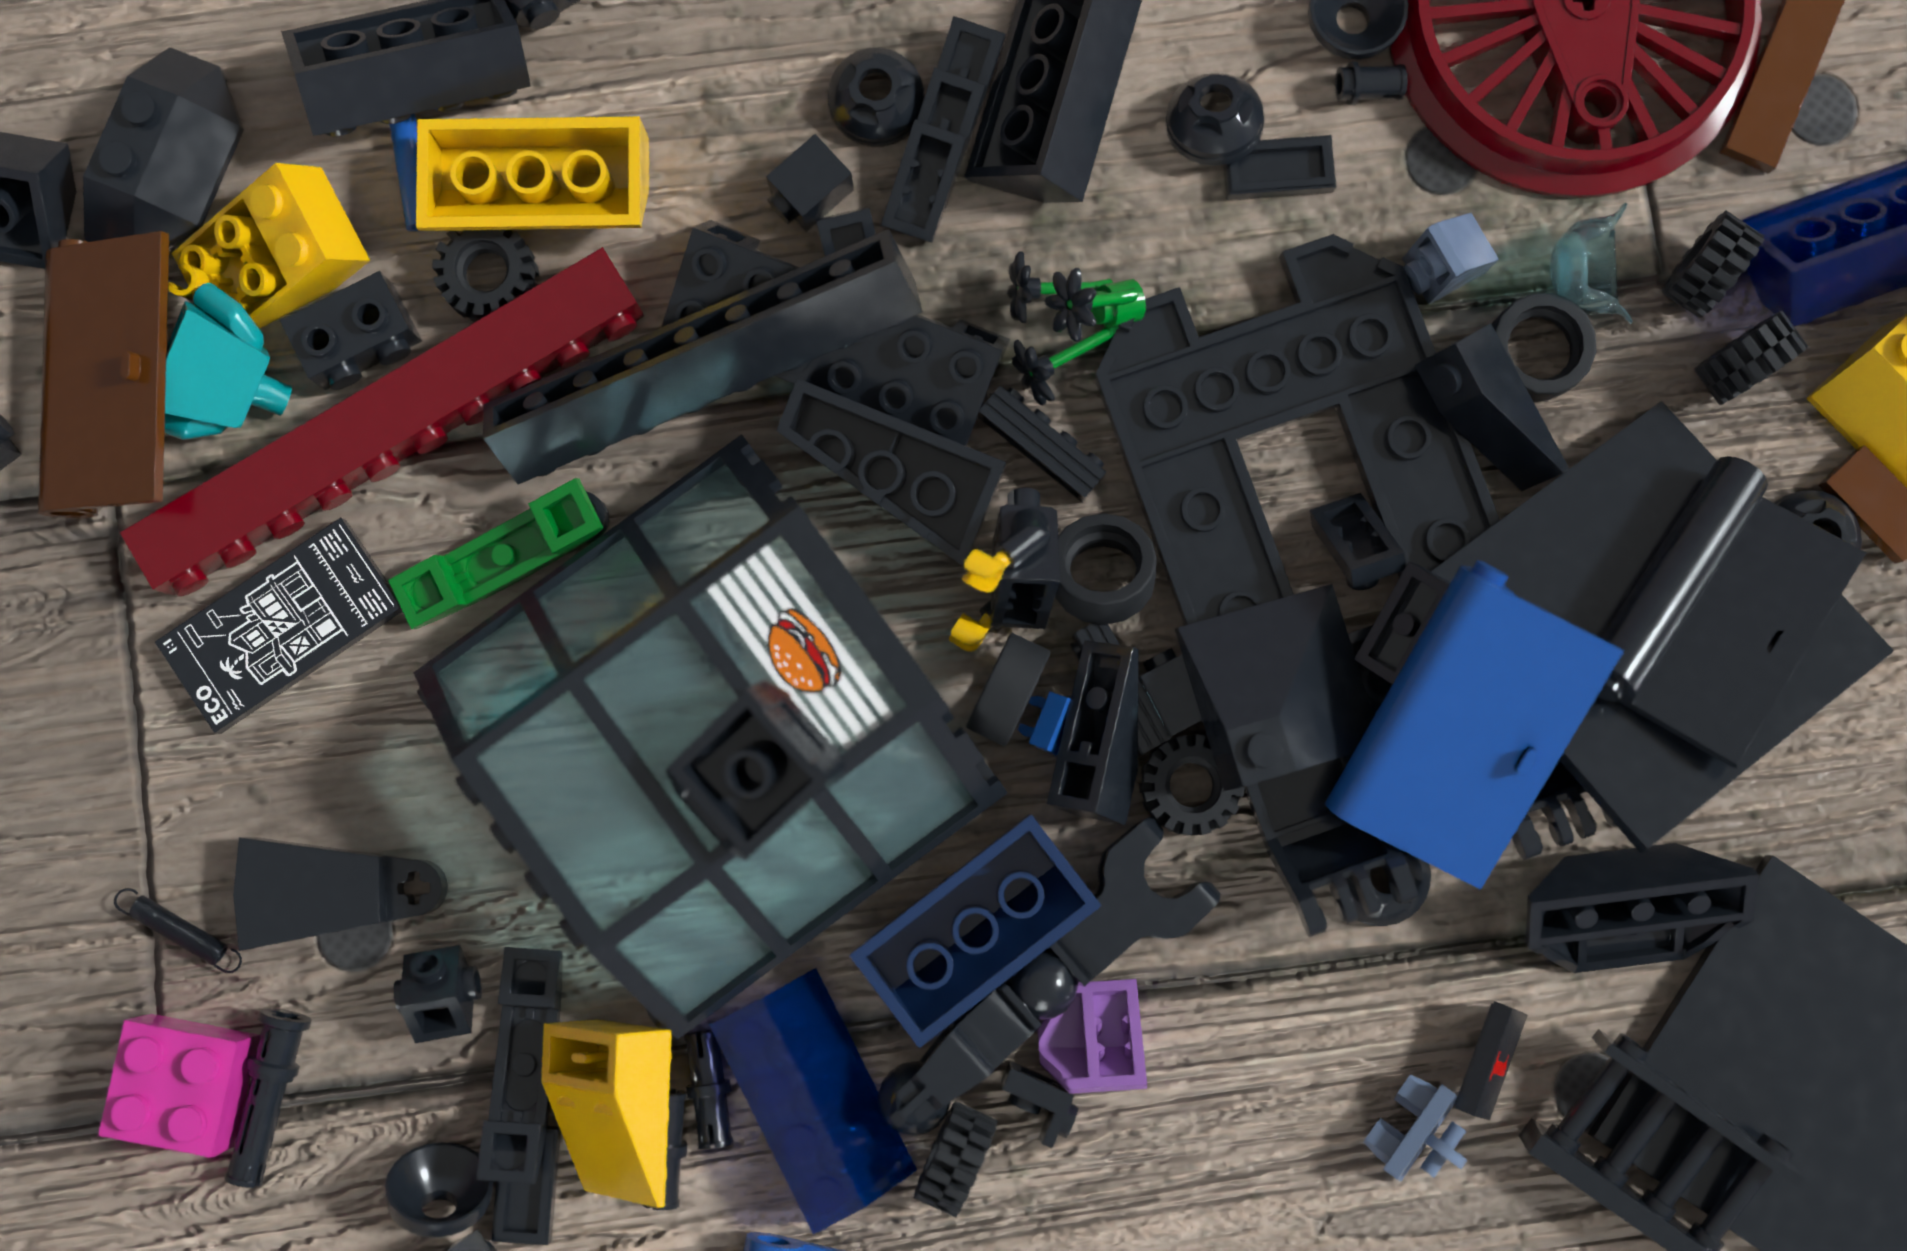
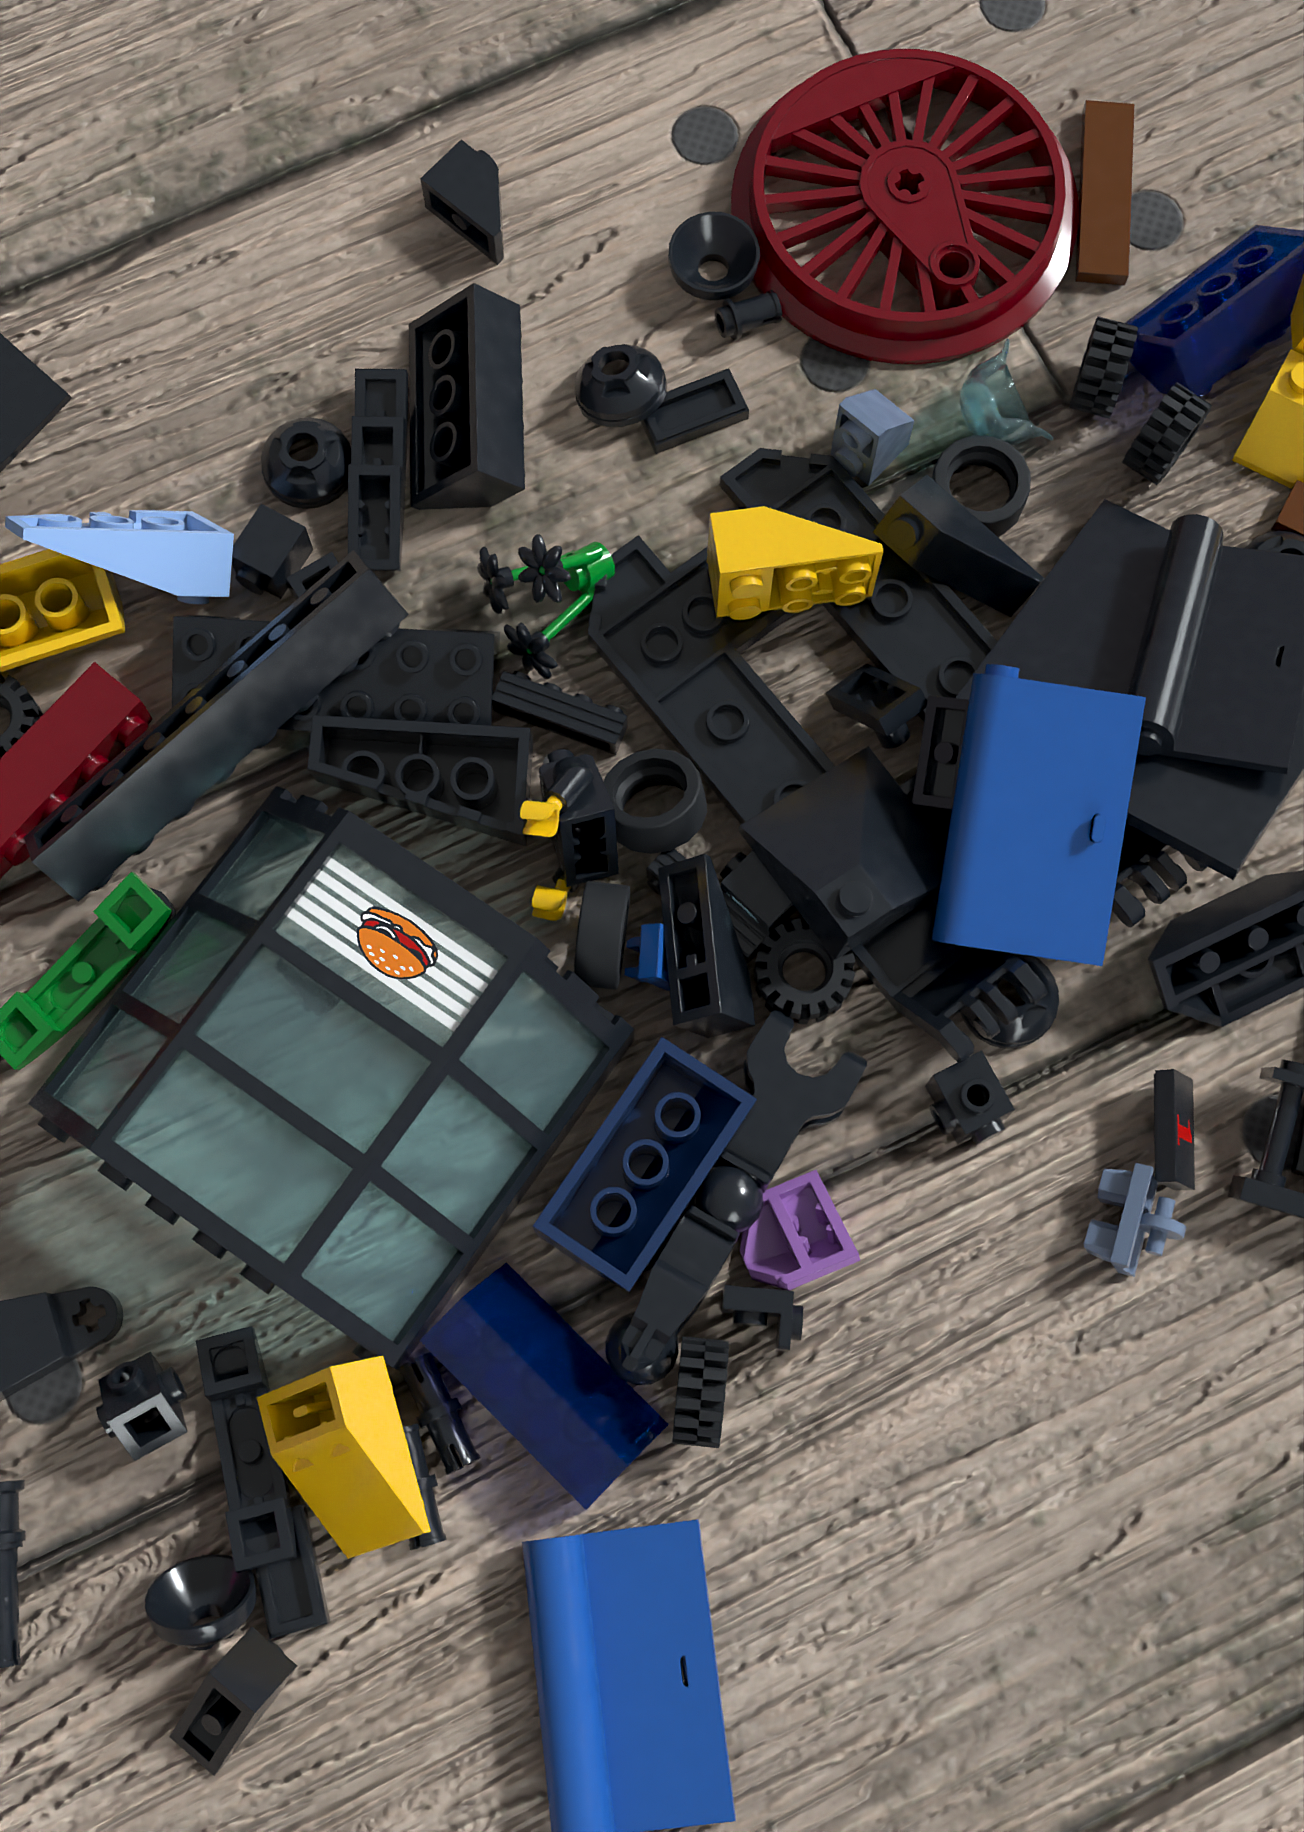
camera: 15 degrees left, 10 degrees down
(695, 148) = (156, 547): none -> light blue wedge
(754, 769) = (380, 1057): black slope -> none
(1304, 967) = (969, 1100): none -> black brick
(1309, 370) = (784, 562): none -> yellow slope

